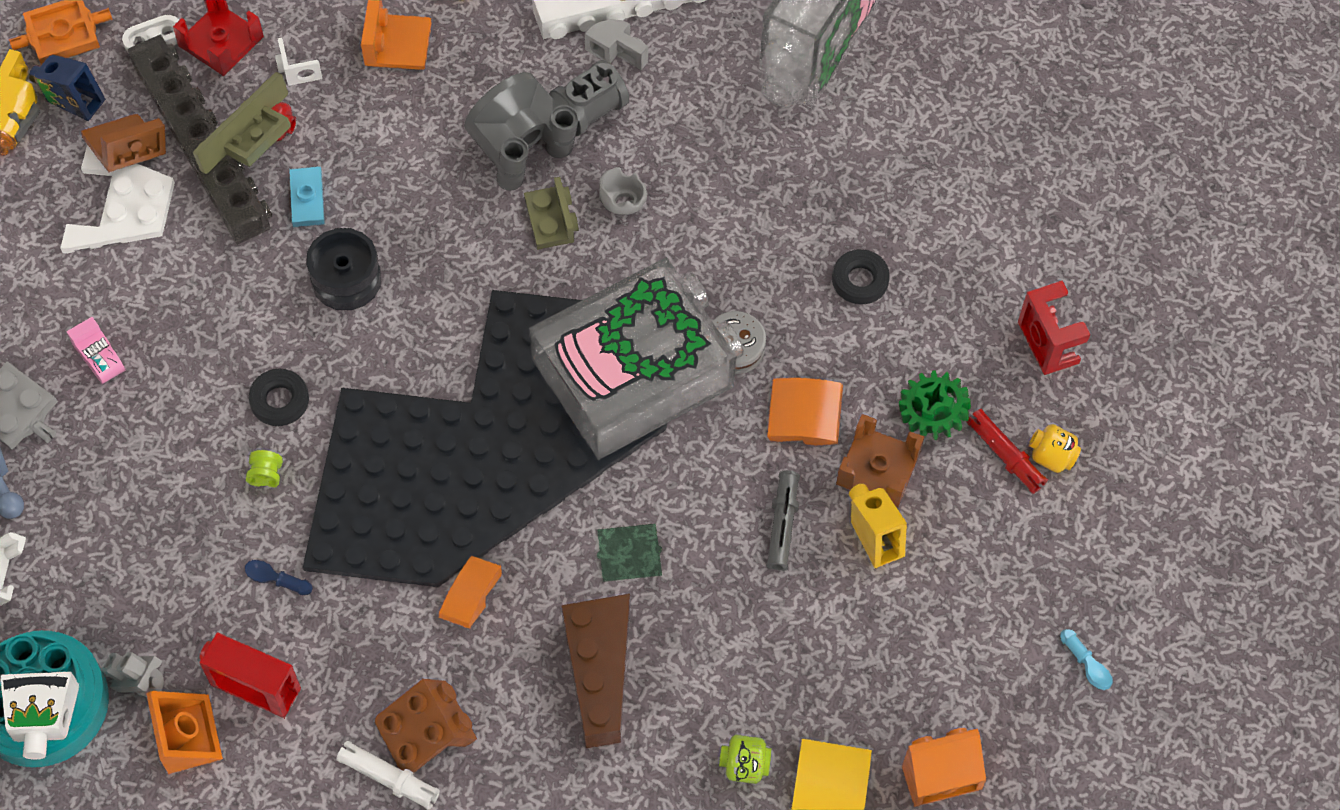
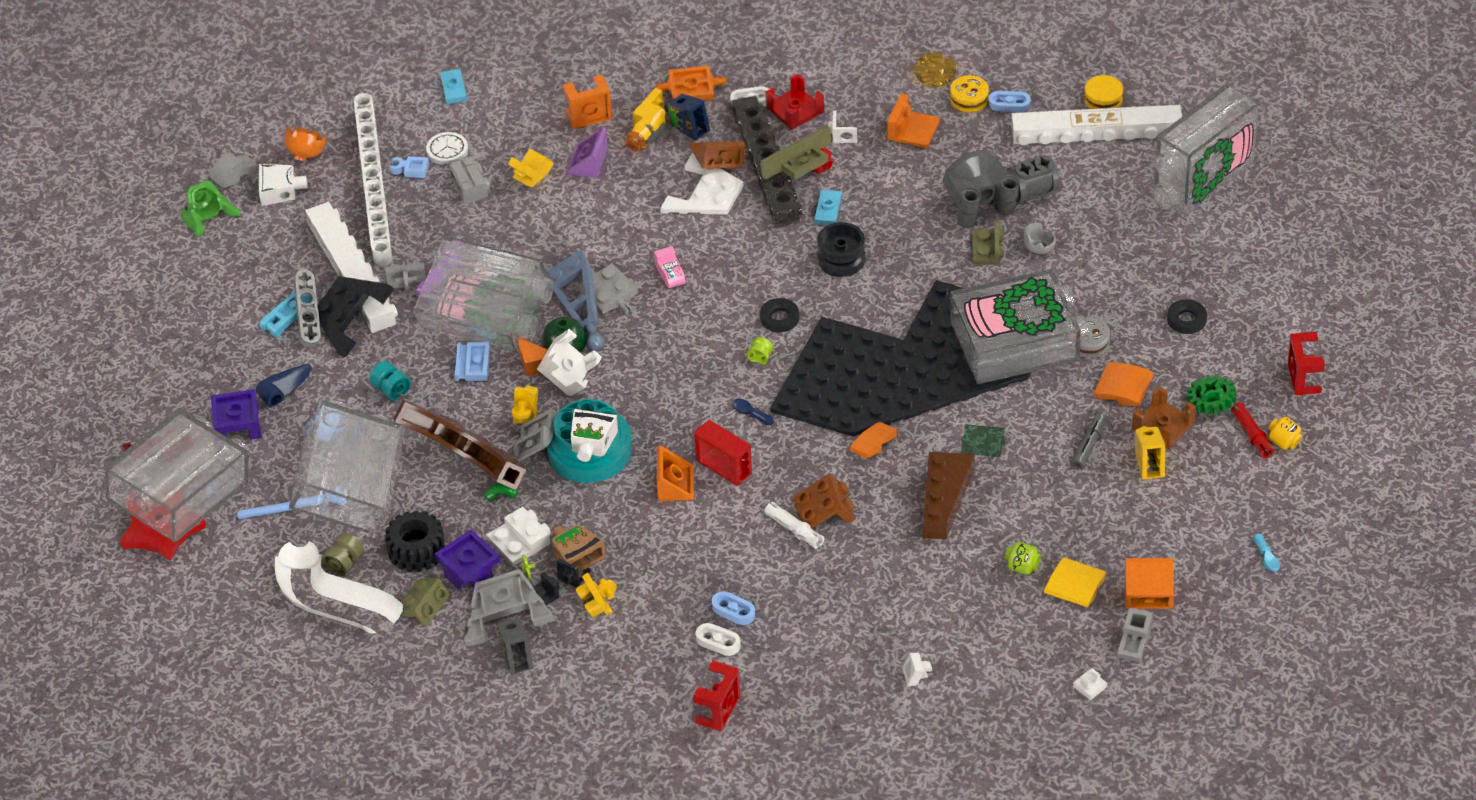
camera: 20 degrees right, 15 degrees down
(134, 673) = (649, 439): light grey hips -> none
(613, 39) = (1062, 151): light grey brick -> none

